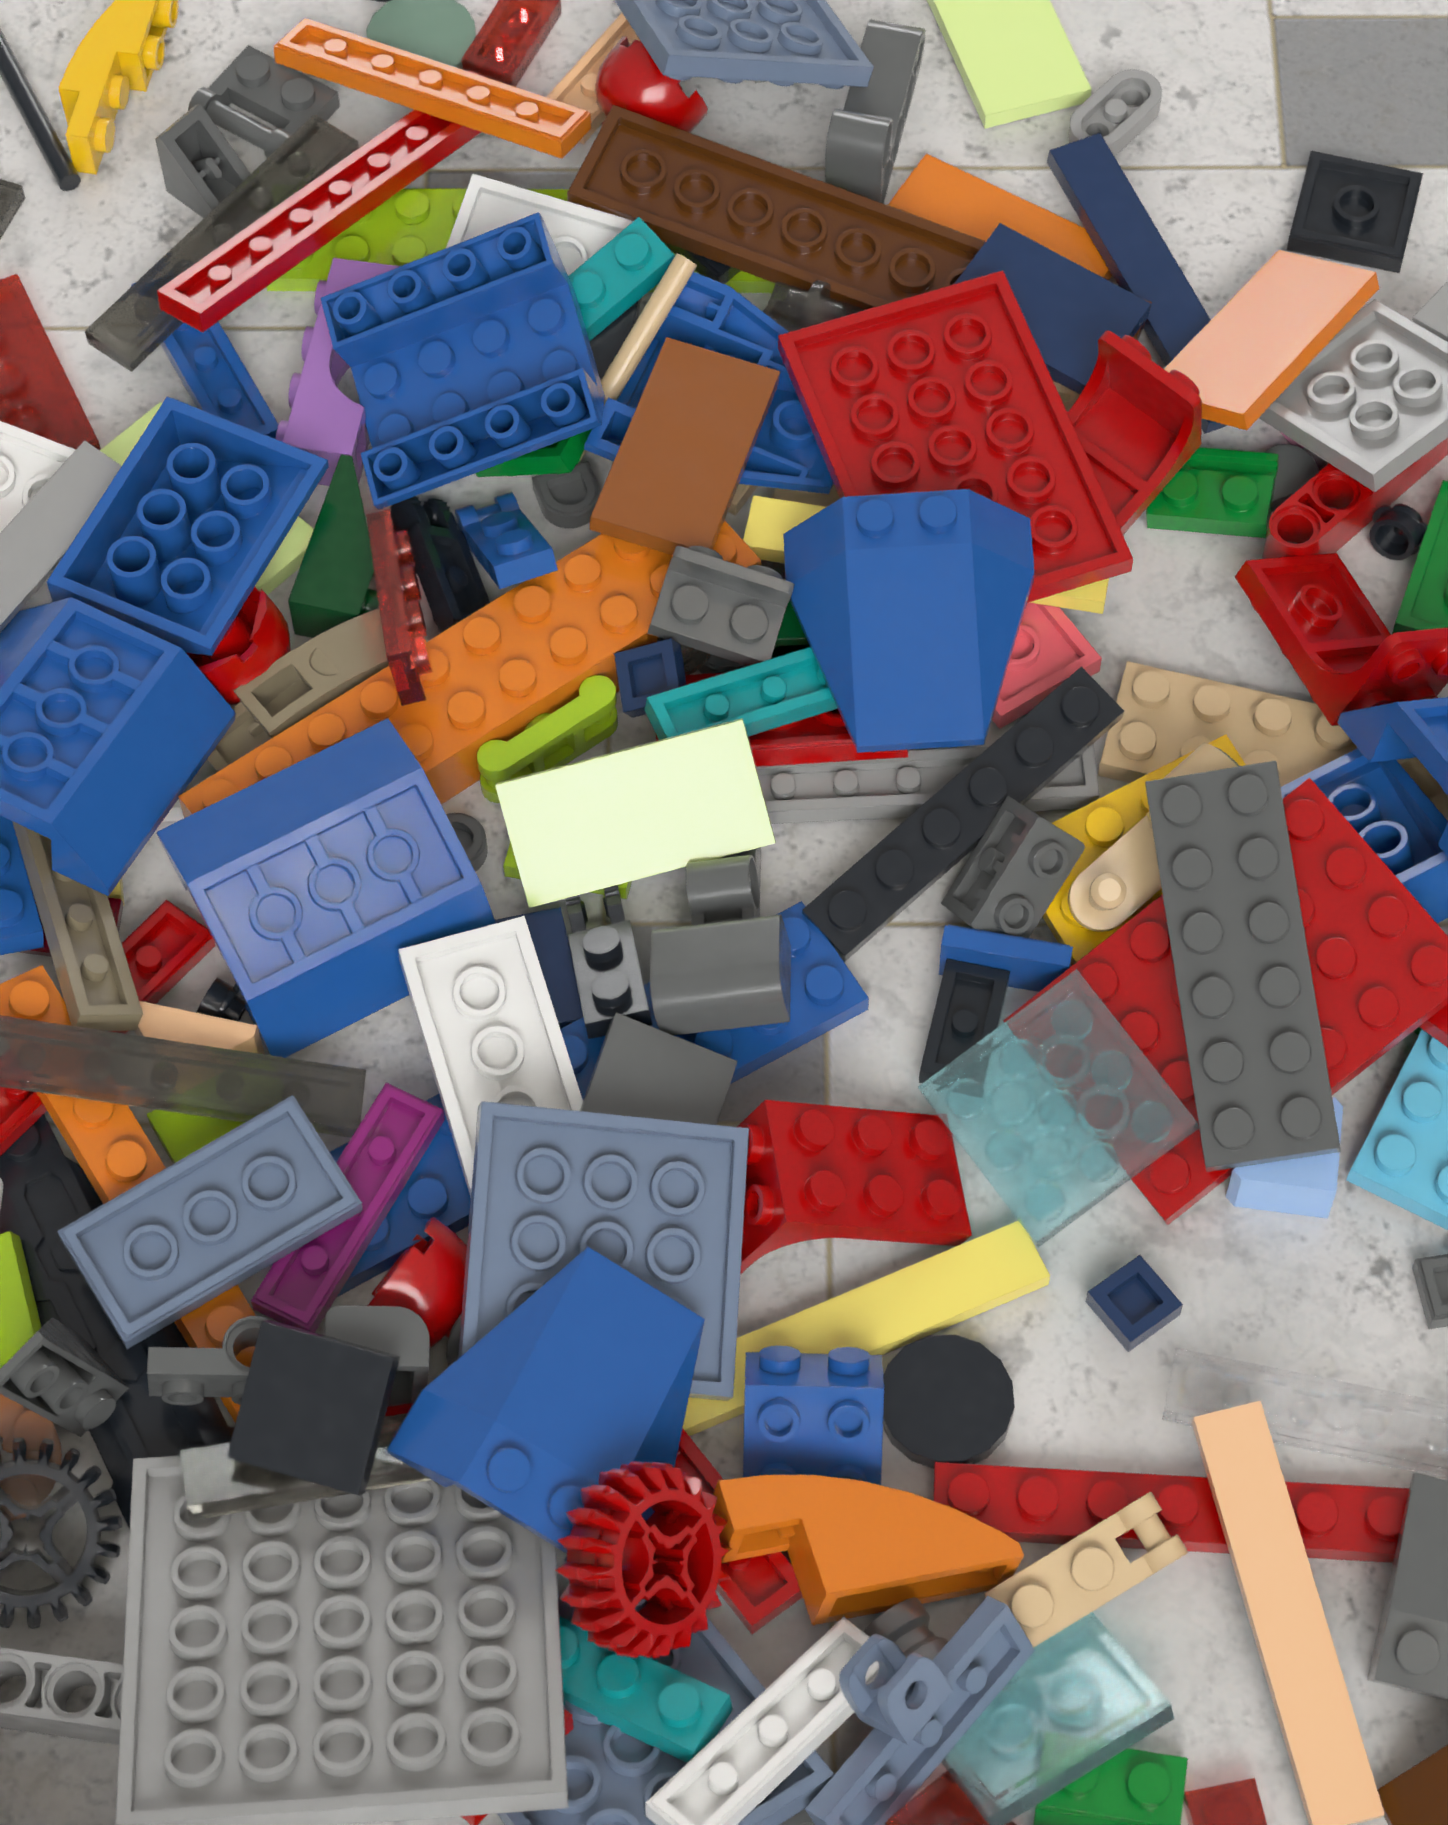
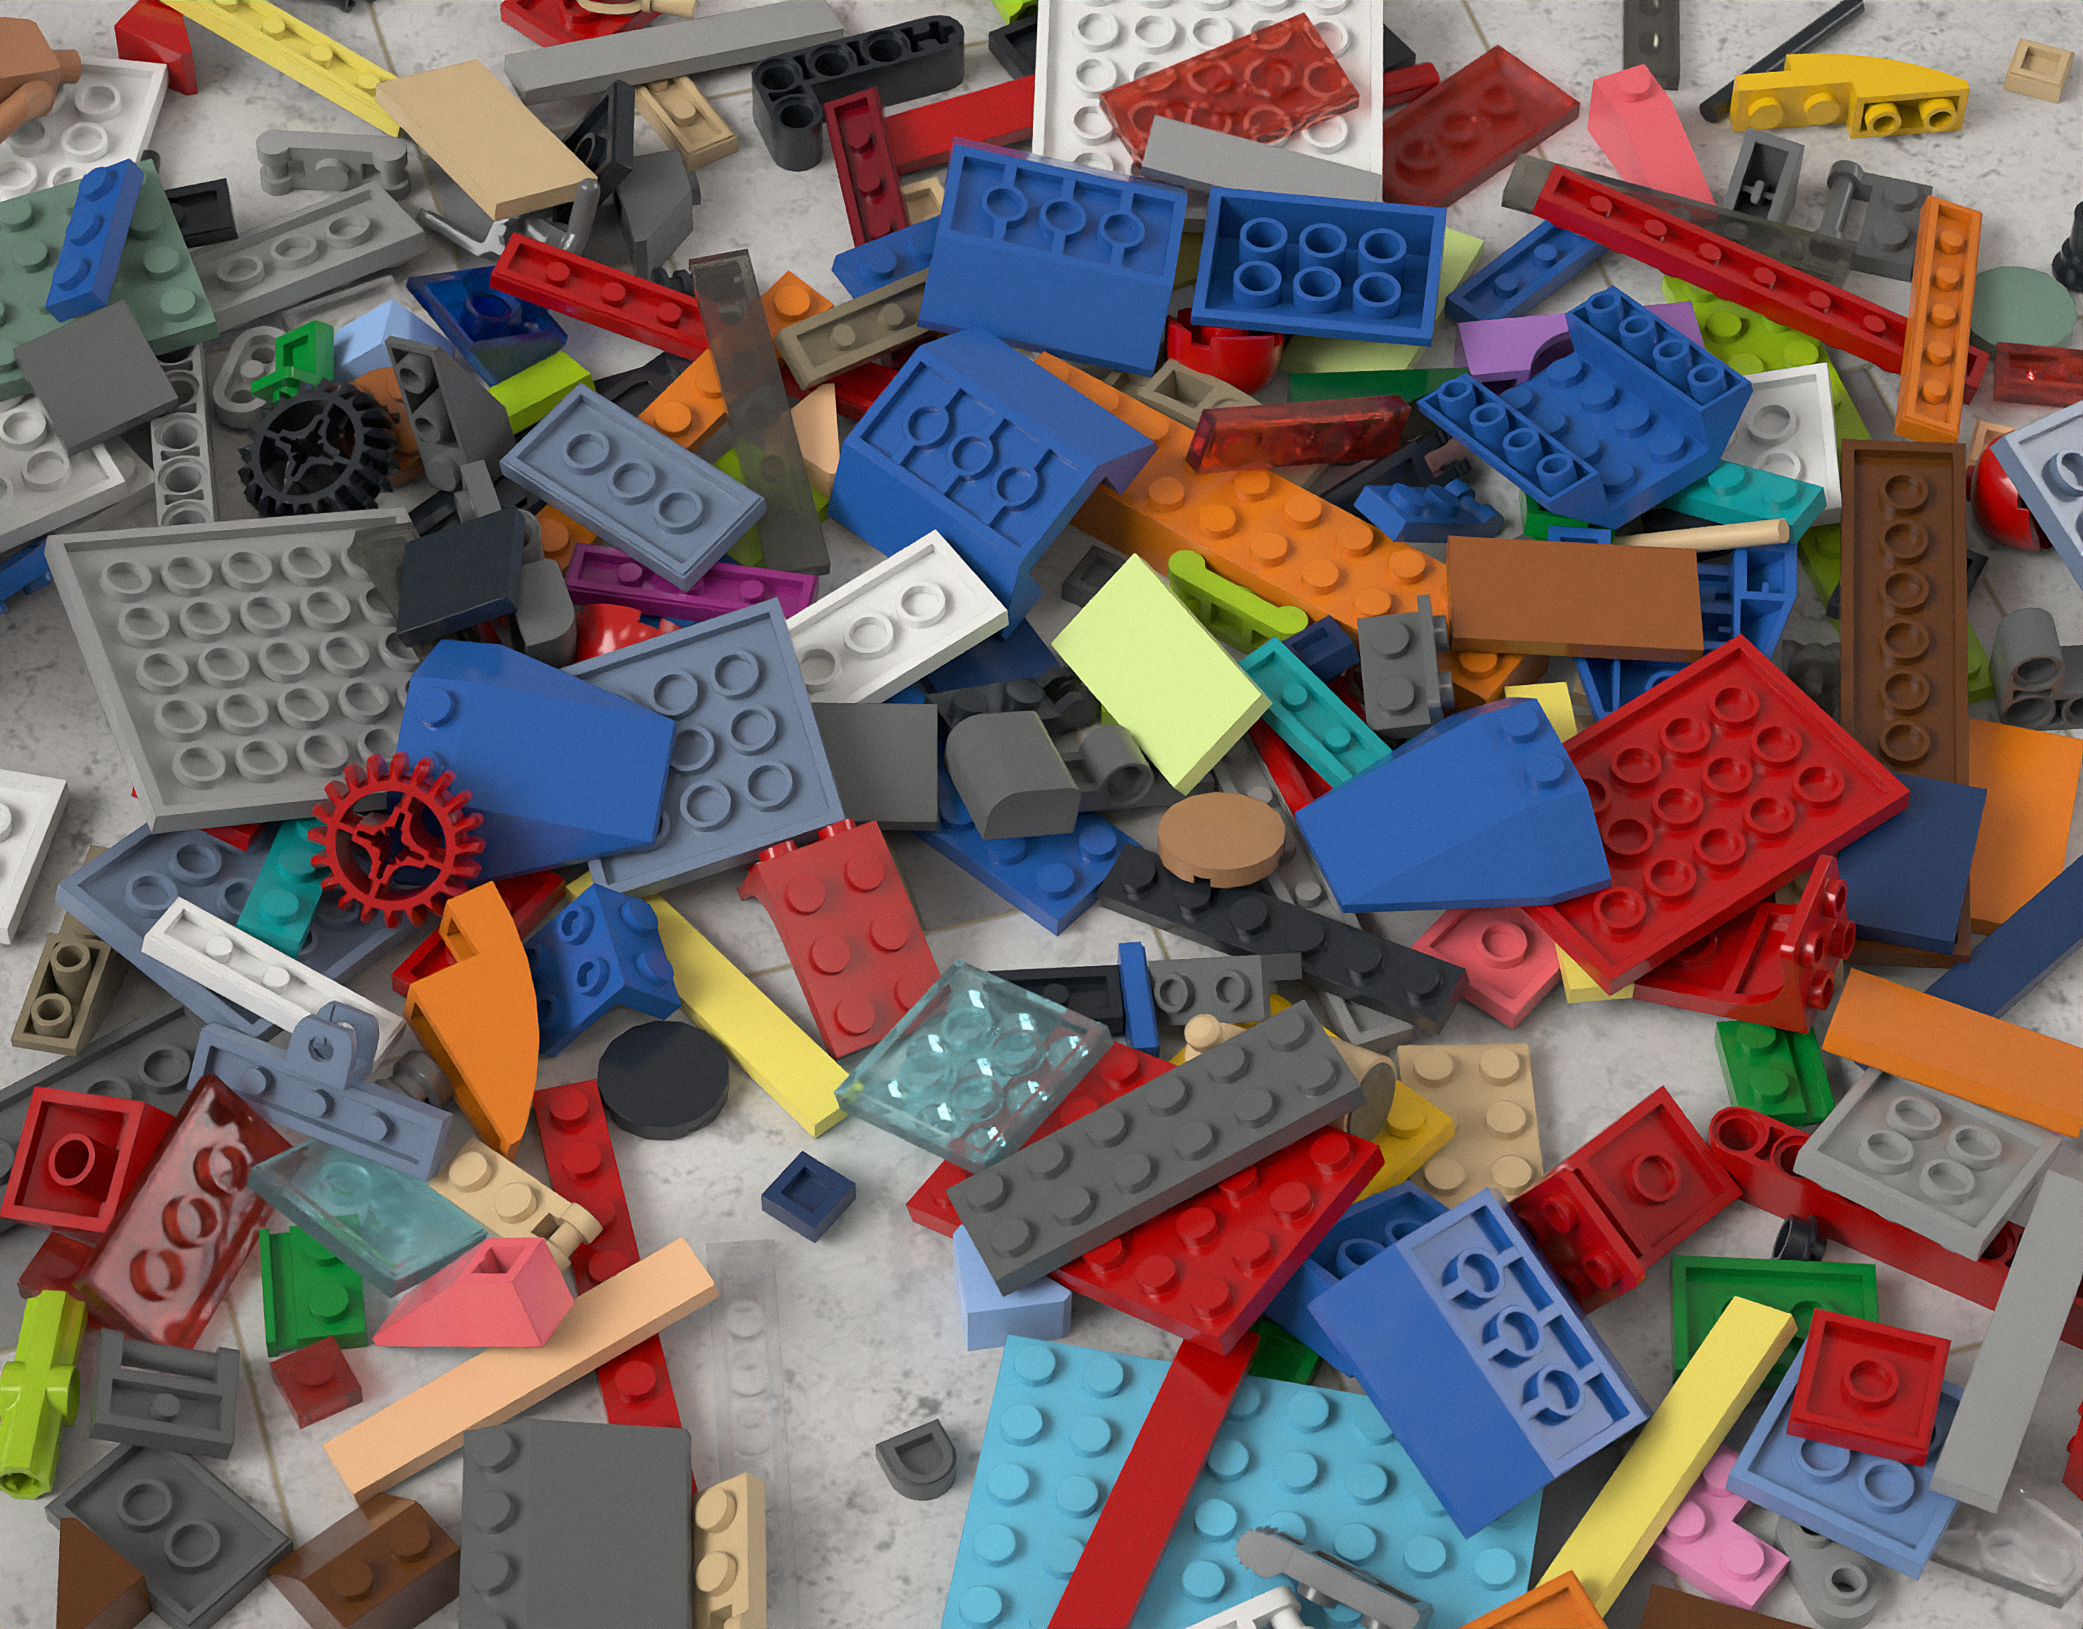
camera: 70 degrees right, 10 degrees down
(100, 234) = (1643, 134): none -> coral slope
(846, 823) = (1221, 839): none -> medium nougat tile
(1223, 1631) = (488, 1297): none -> coral slope

